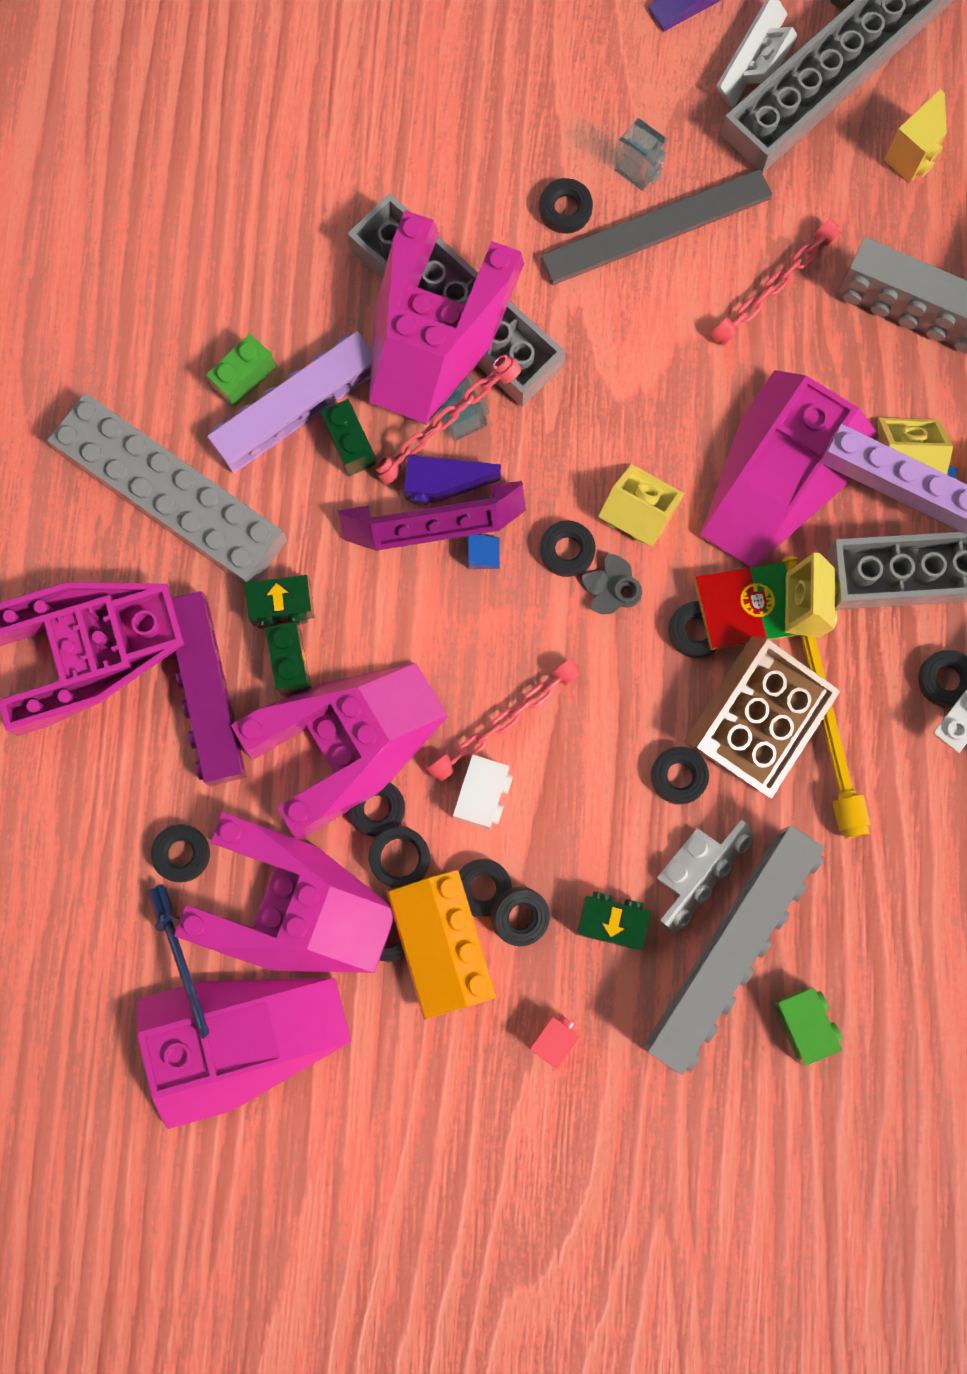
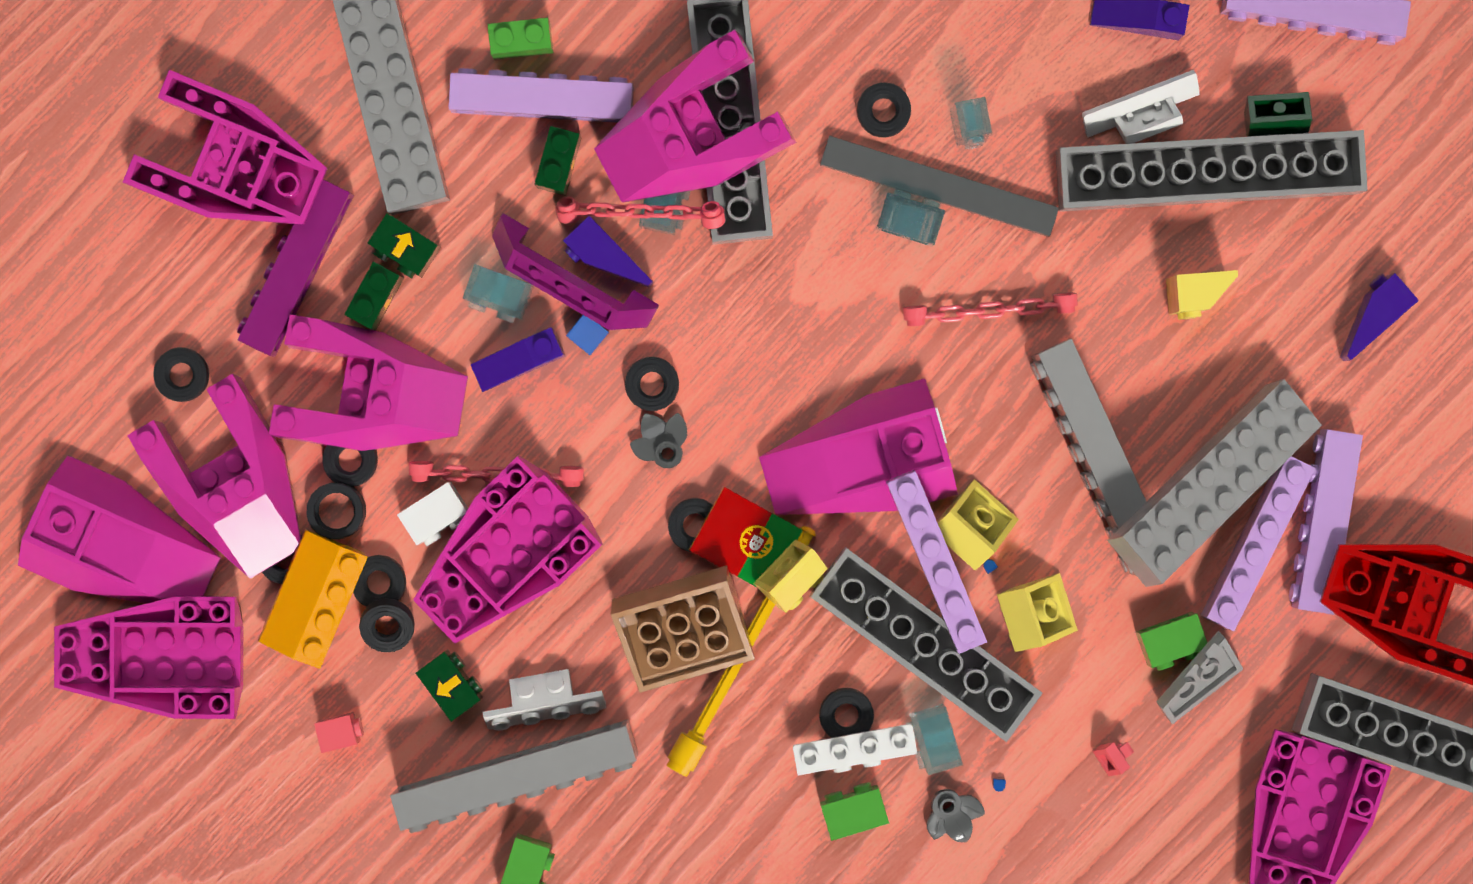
camera: 35 degrees right, 10 degrees up
(166, 922) = (131, 417): dark blue piece -> none
(349, 1106) = (158, 657): none -> dark pink wedge
(386, 576) = (498, 293): none -> clear light blue brick
(446, 614) = (518, 359): none -> dark purple slope
(567, 773) = (506, 551): none -> dark pink wedge
(640, 505) = (734, 397): light yellow slope -> none
(657, 264) = (910, 218): none -> clear light blue brick
(685, 756) = (570, 623): black tyre -> none

